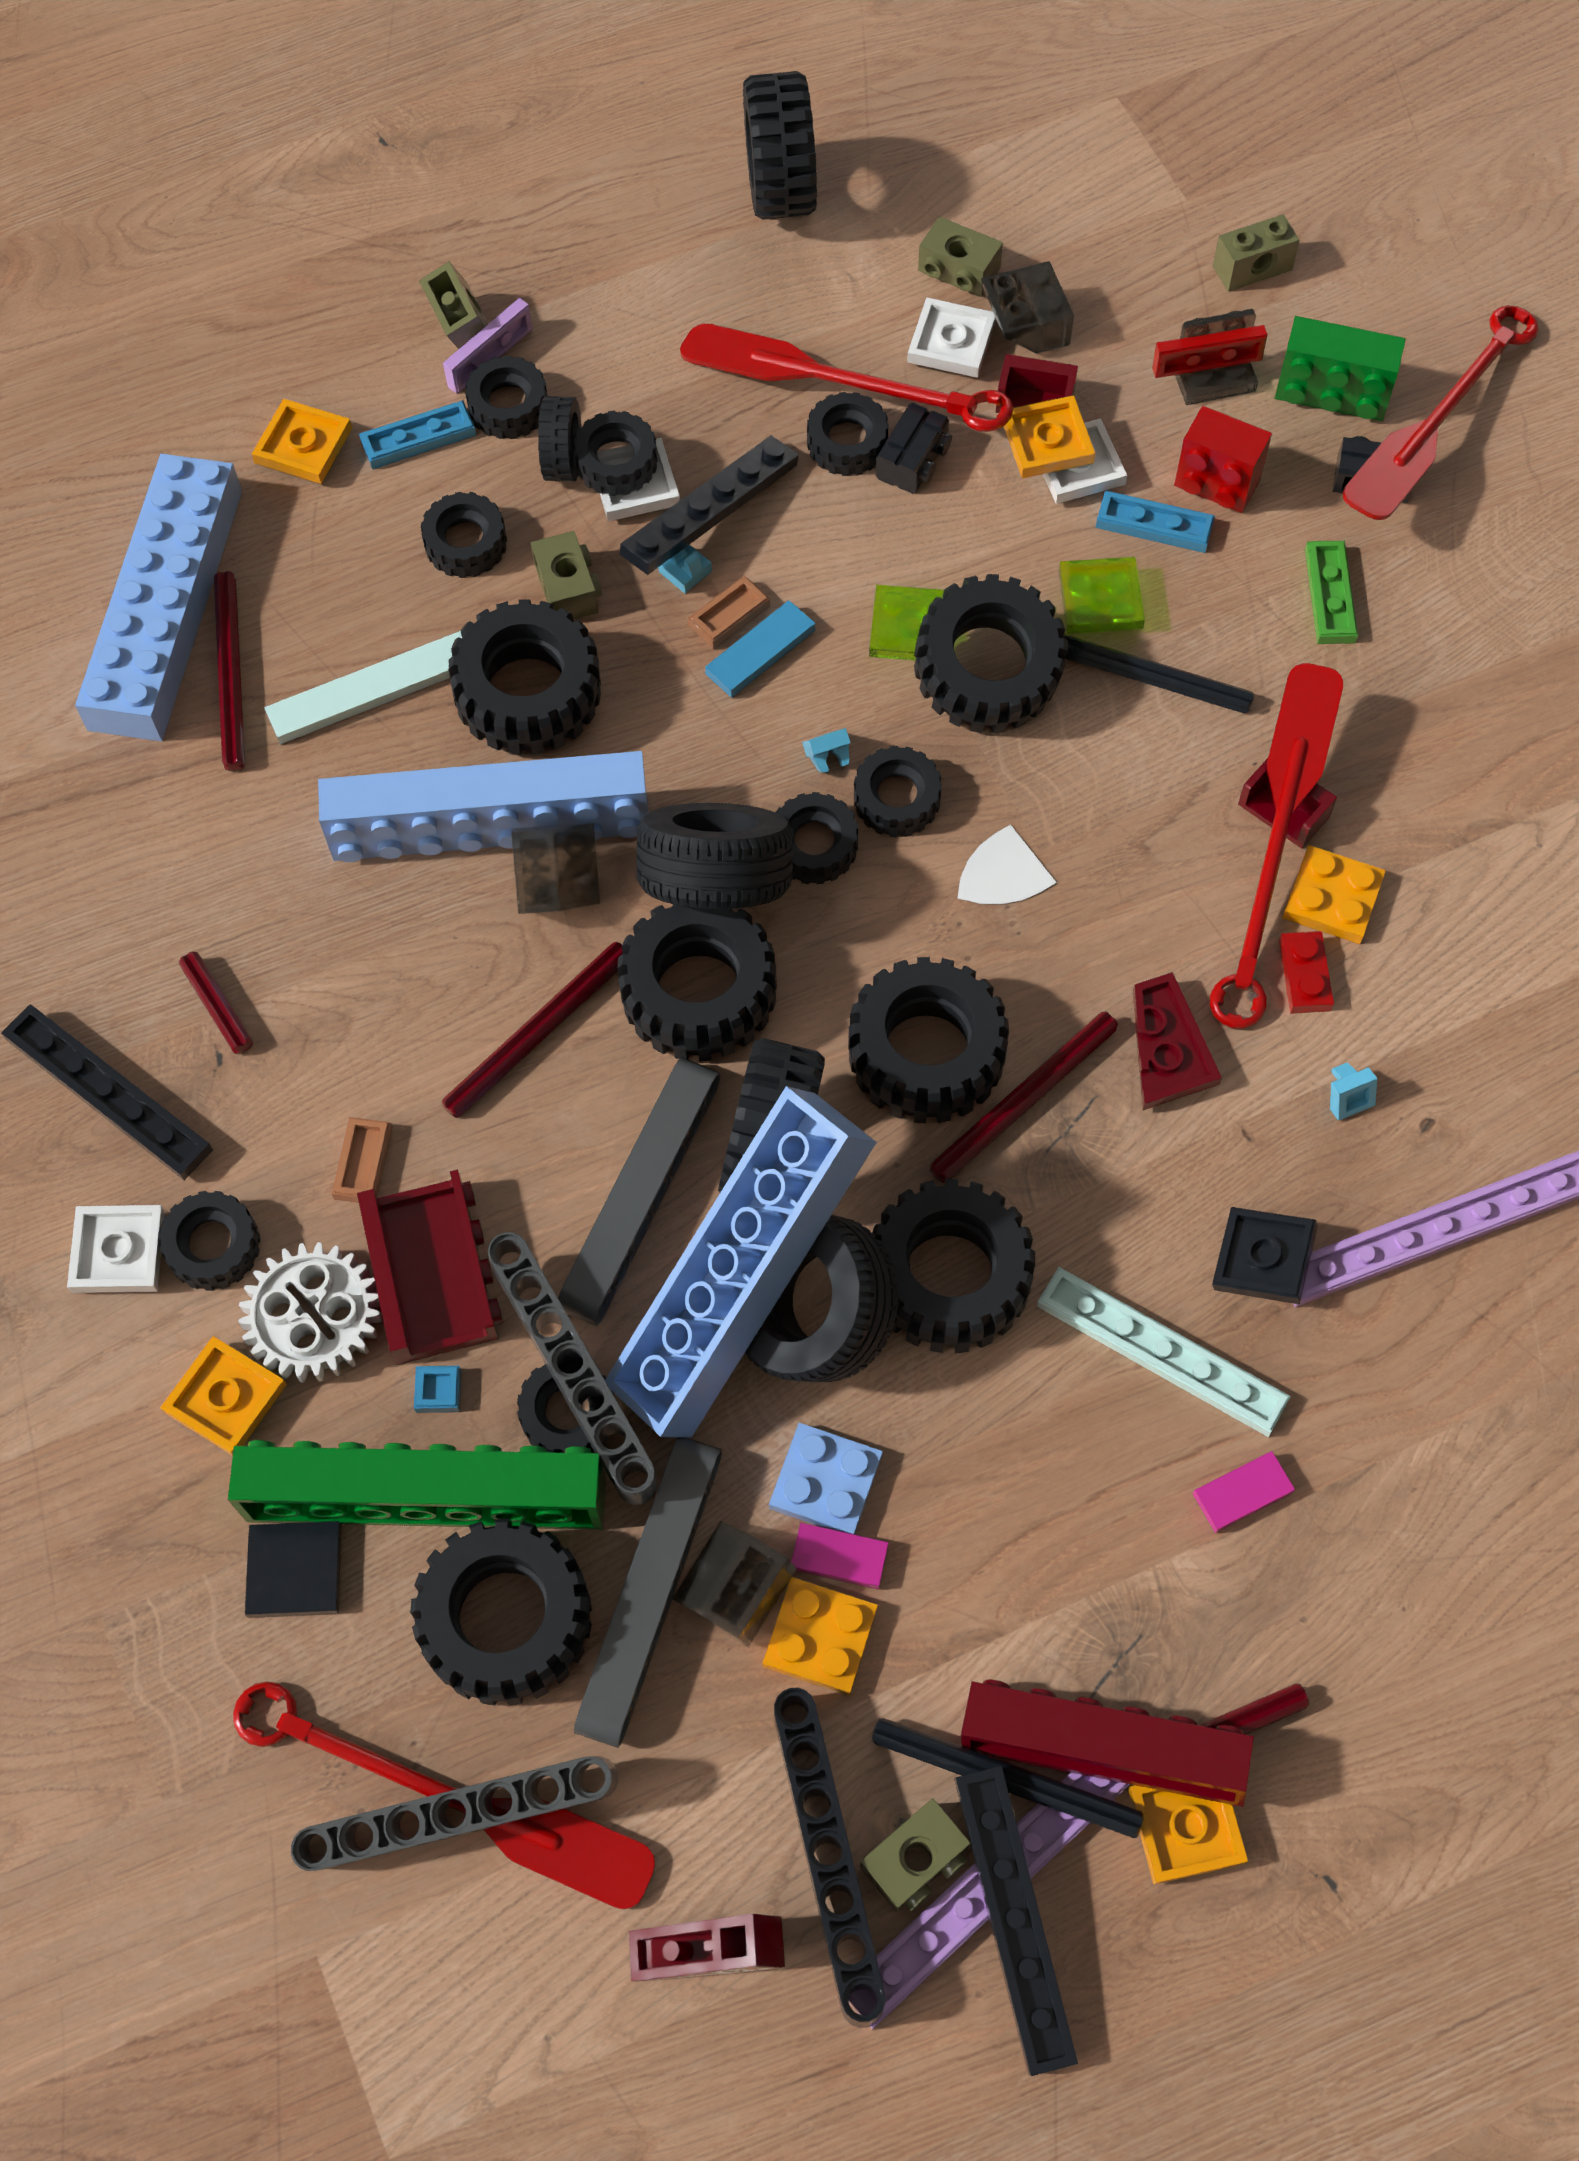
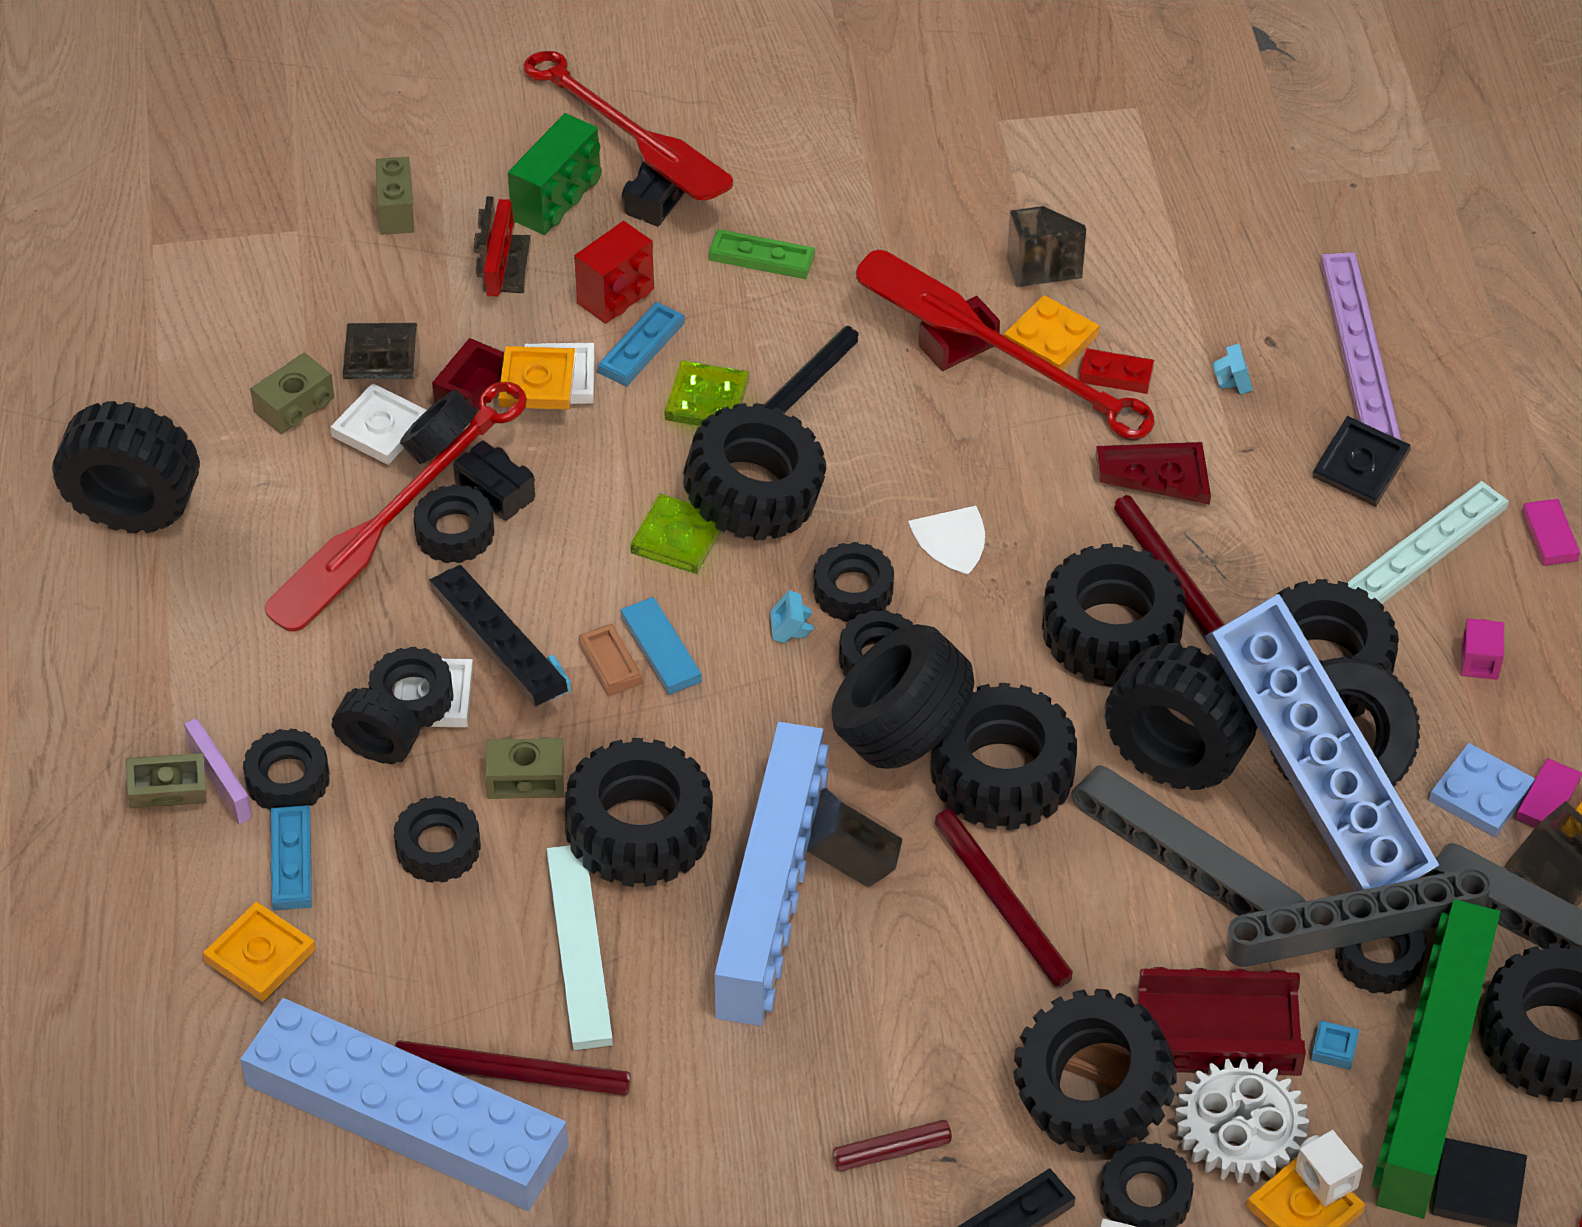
camera: 75 degrees left, 15 degrees down
(249, 1399) = (1328, 1167): none -> white brick
(329, 1179) = (1066, 1031): none -> black tyre
(942, 372) = (438, 426): none -> black tyre
(1025, 1440) = (1482, 649): none -> dark pink brick
(1438, 842) = (1044, 246): none -> clear smoke slope

